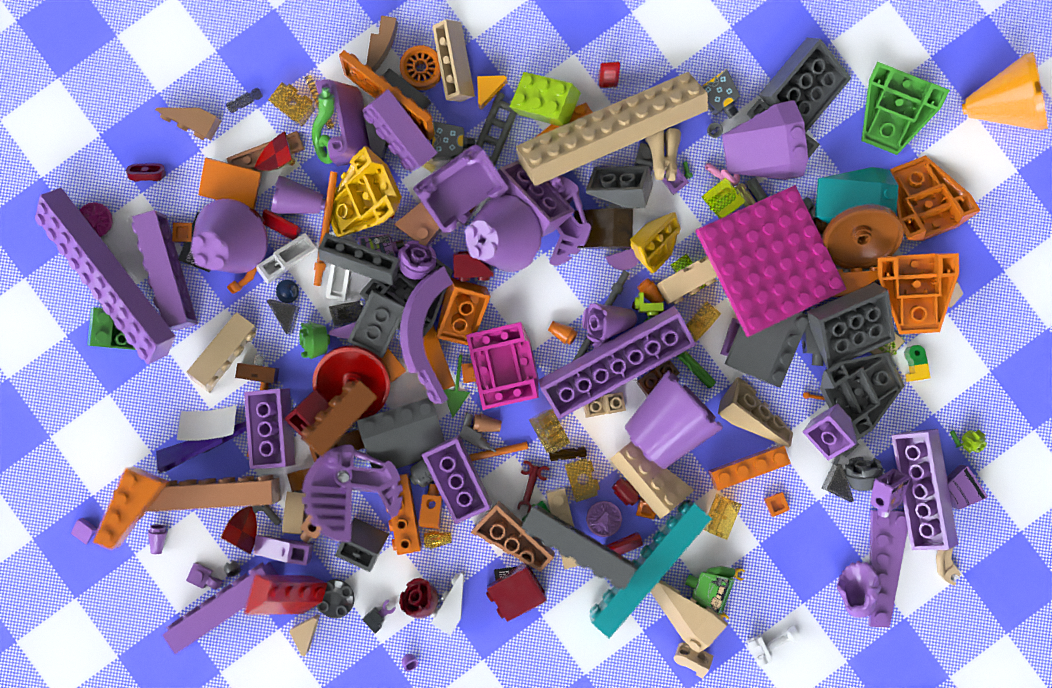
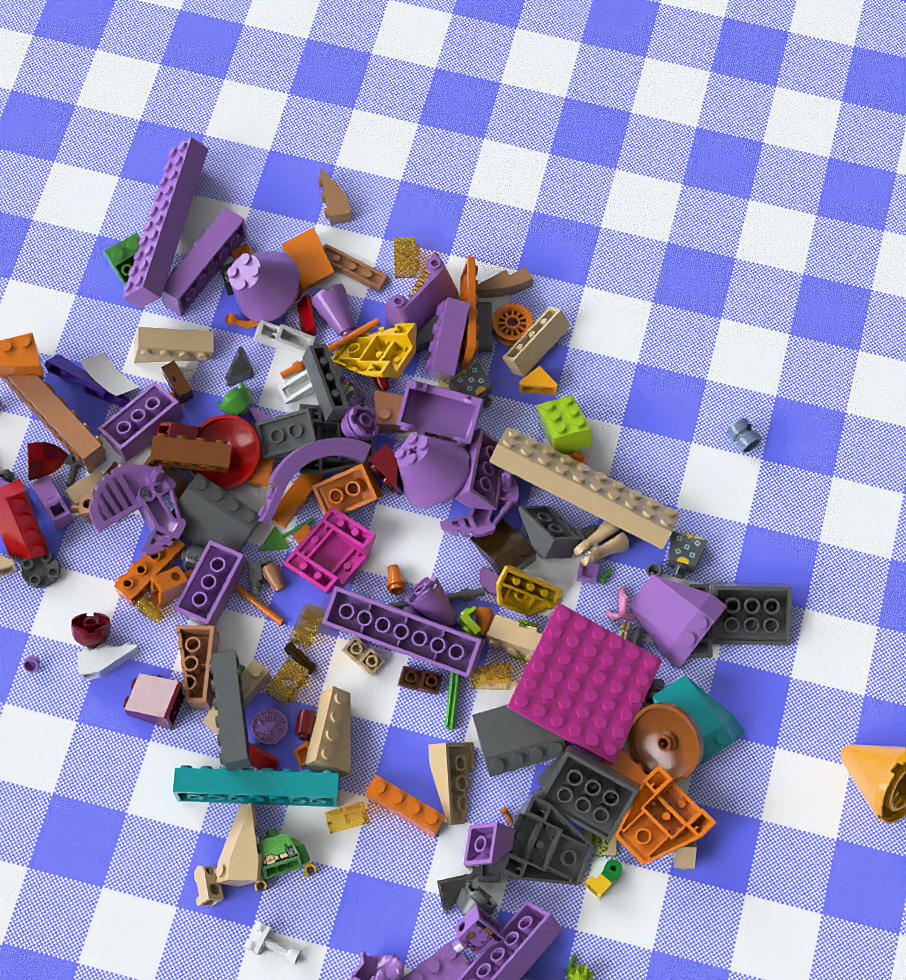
camera: 55 degrees right, 20 degrees down
(98, 217) = (206, 191): dark pink wheel -> none
(146, 172) = (268, 197): dark red plate -> none
(244, 100) = (380, 224): clear smoke axle -> none
(275, 154) = (356, 273): shield -> none
(287, 291) = (259, 357): dark blue hat -> none
(326, 110) = (416, 277): bright green plant -> none
(346, 313) = (274, 406): clear smoke slope -> none
(364, 545) = (101, 555): dark grey slope -> none
(375, 617) = (48, 610): pearl dark grey piece -> none
(505, 126) = (517, 405): dark grey bar -> none
(534, 471) = (263, 644): dark red bar -> none
(608, 74) = (625, 458): red slope -> none
(671, 422) = (390, 707): medium lavender cone -> none
(723, 198) = (606, 614): clear neon green piece -> none
(776, 504) = (393, 856): orange tile -> none
(898, 107) = (797, 694): bright green wedge -> none
(930, 200) = (744, 779): orange wedge -> none

